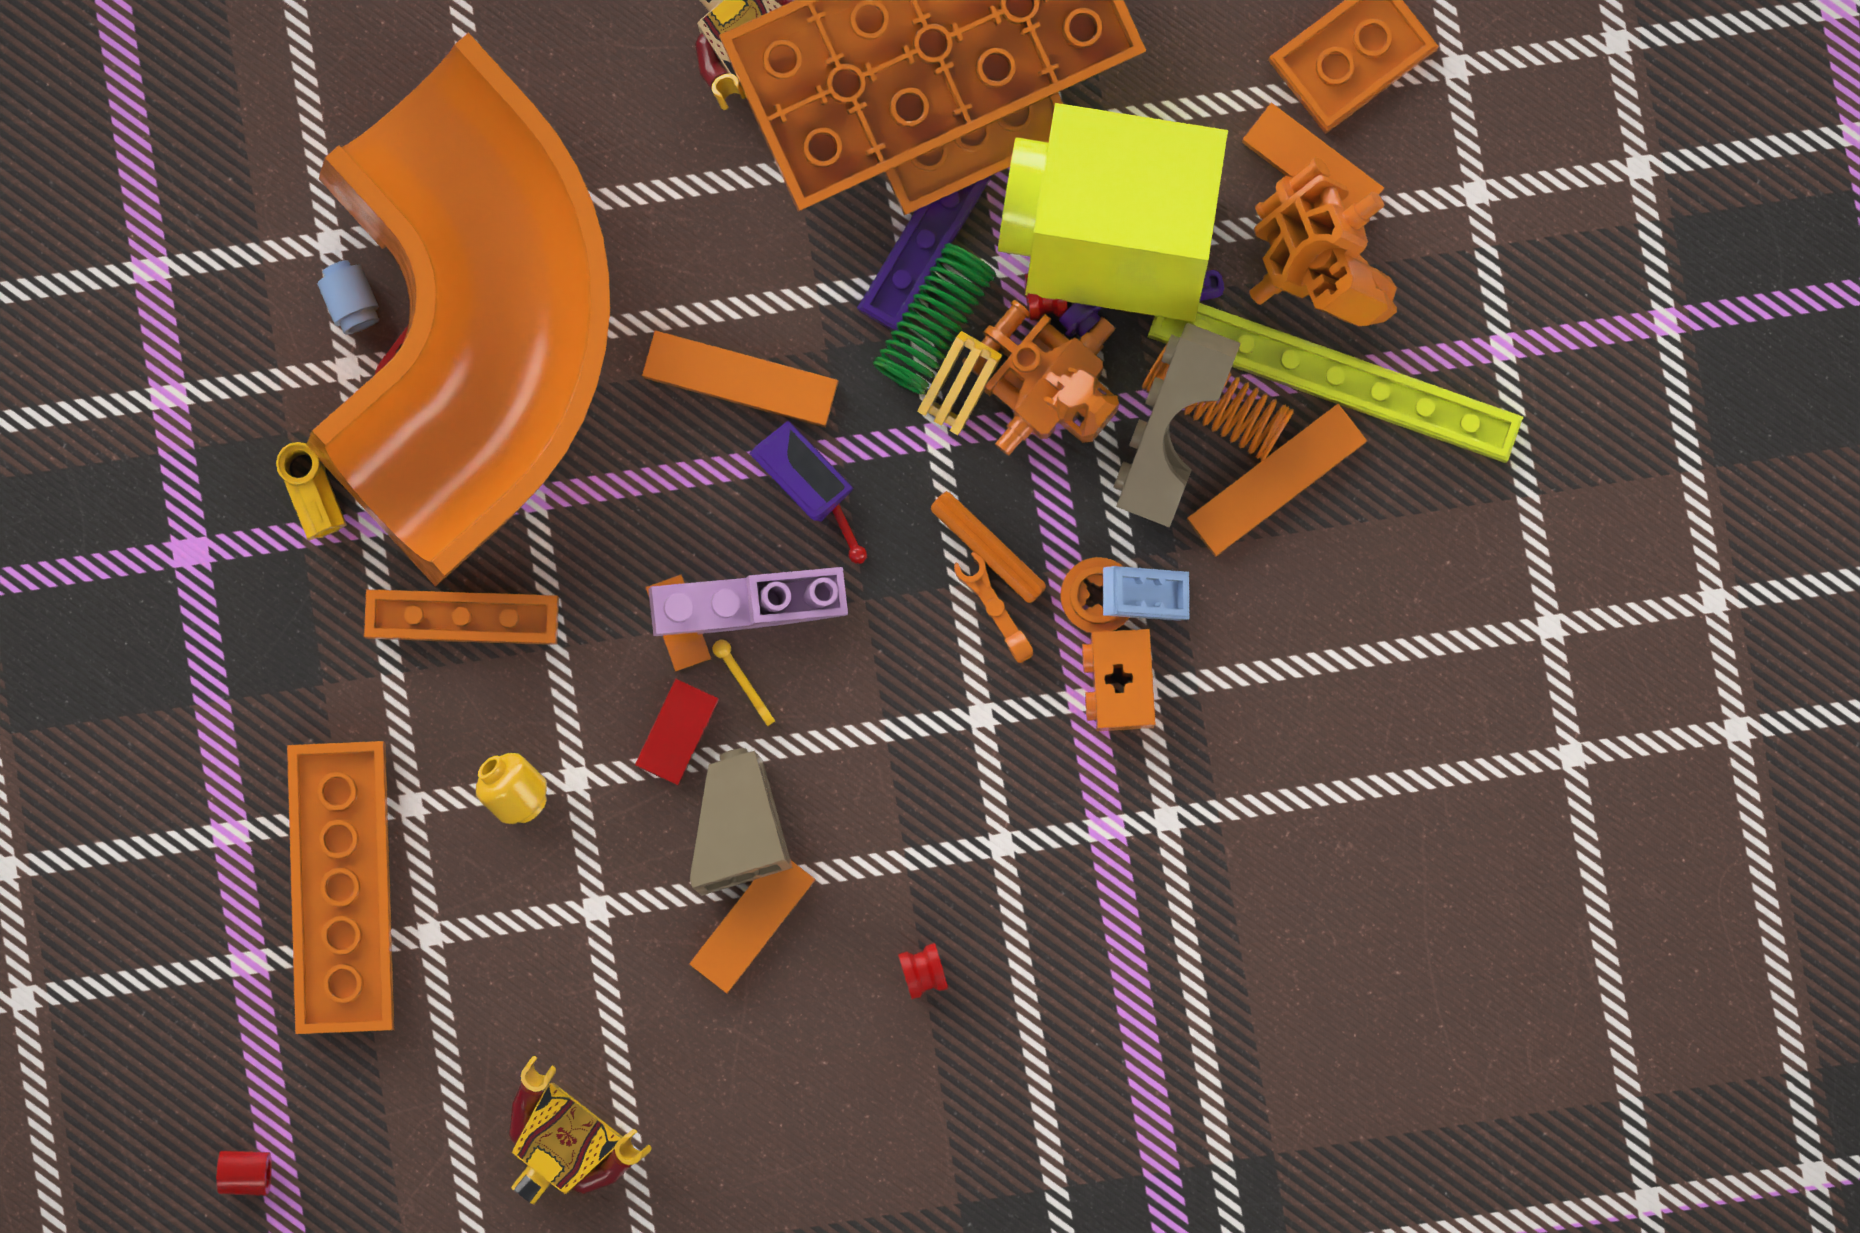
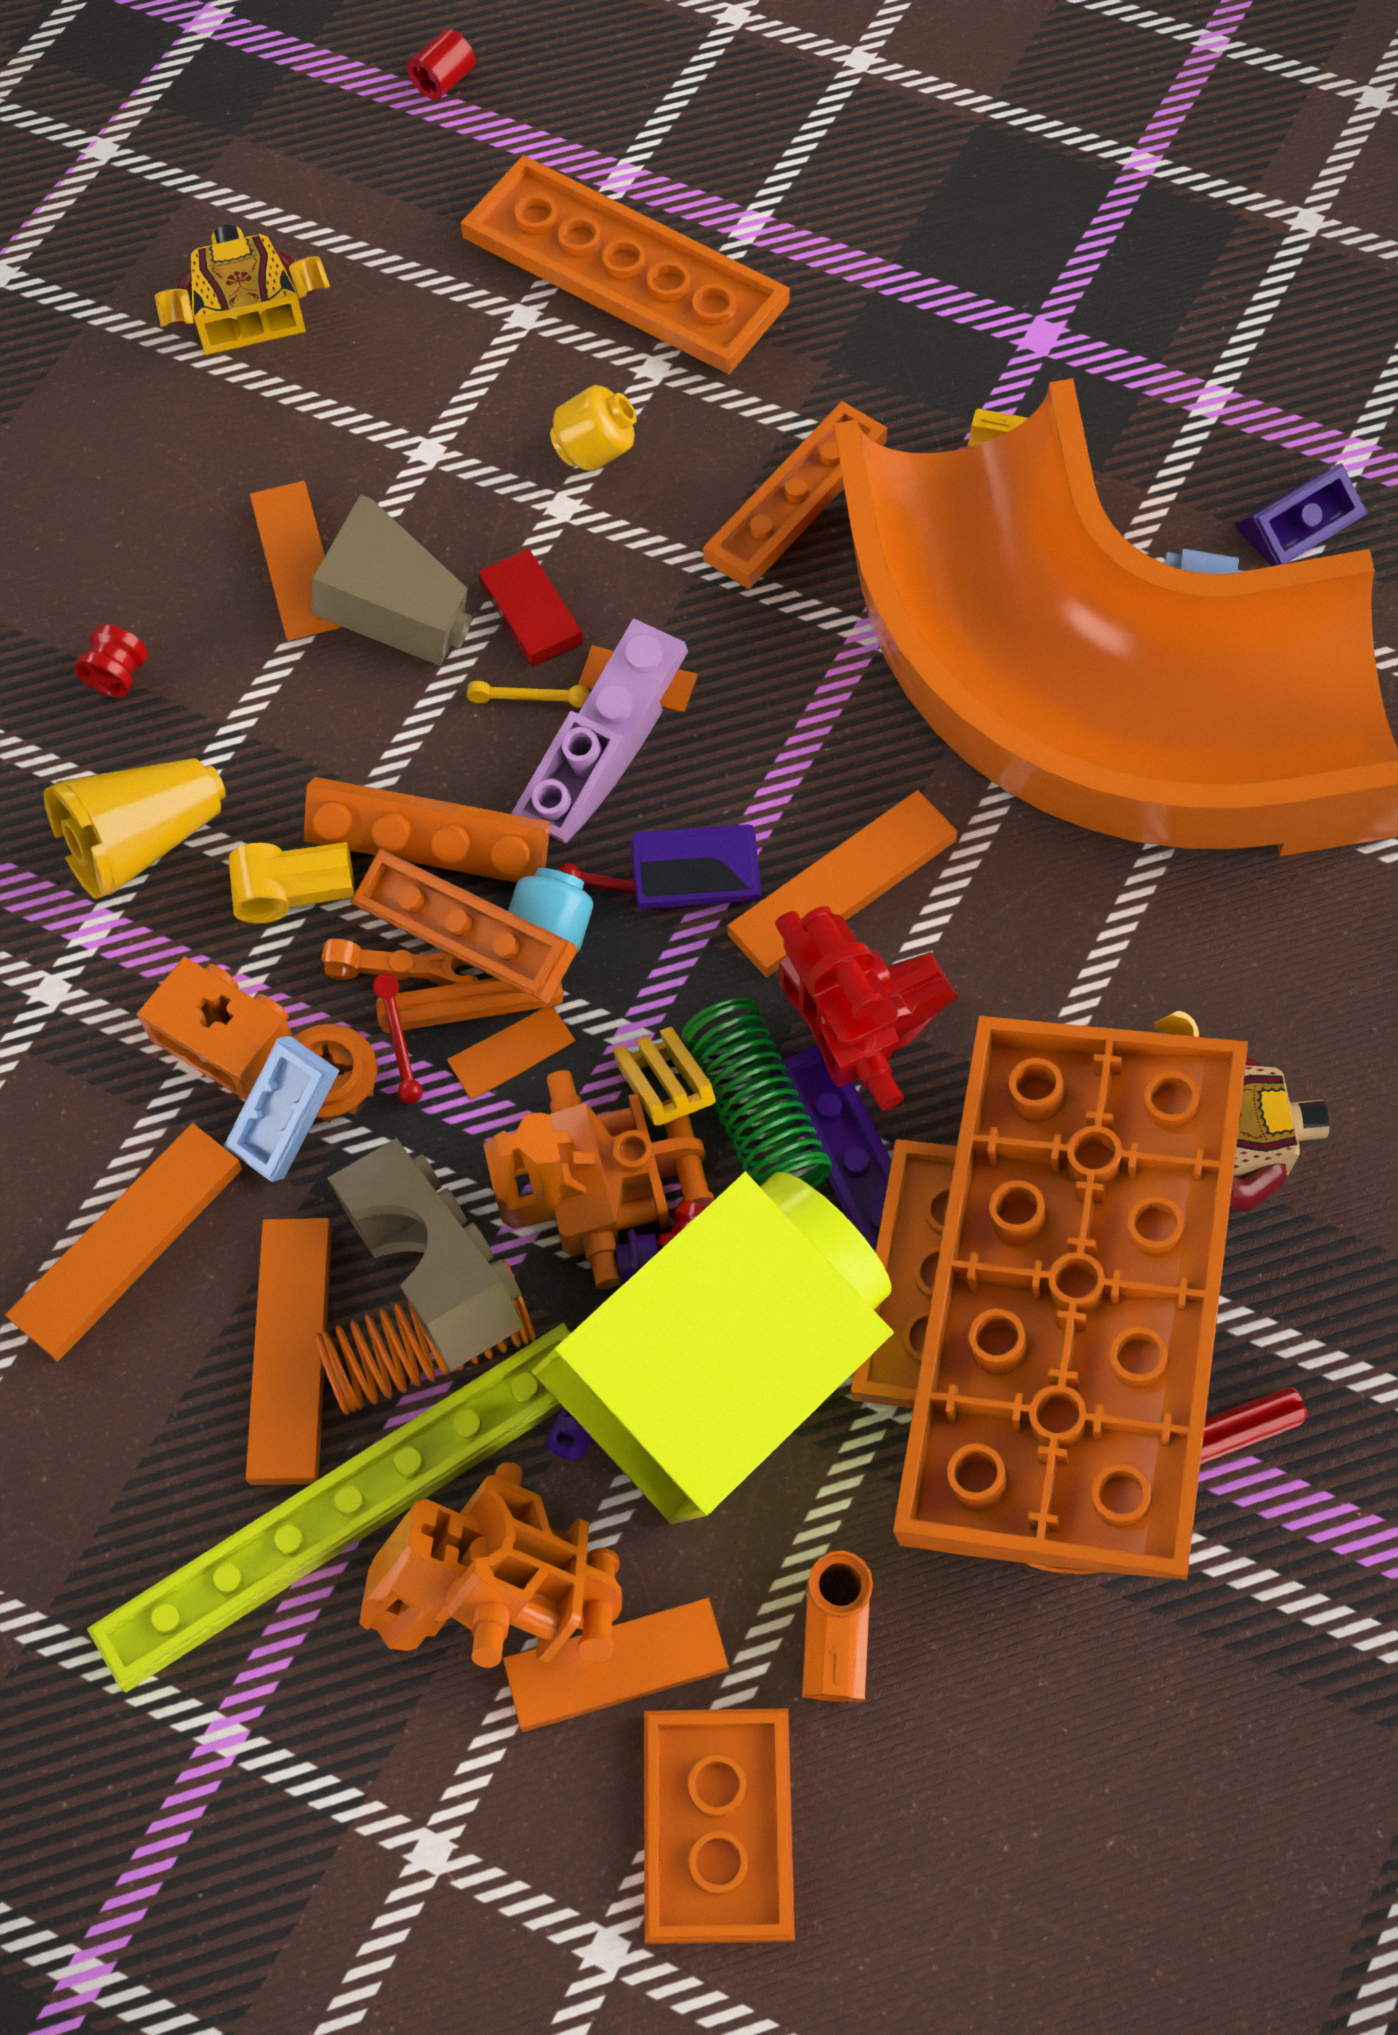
camera: 125 degrees right, 20 degrees down
(235, 272) = (1303, 516): none -> dark purple slope
(837, 295) = (855, 1001): none -> red piece
(897, 660) = (425, 830): none -> orange plate
(900, 537) = (554, 903): none -> medium azure head
(949, 579) = (465, 926): none -> orange tile
(999, 730) = (272, 880): none -> yellow piece
(1000, 501) = (510, 1051): none -> orange sticker
(1025, 591) = (387, 987): none -> red hinge
(1027, 848) = (130, 818): none -> yellow cone
(1212, 58) = (836, 1634): none -> orange piece
(1285, 629) = (124, 1242): none -> orange tile

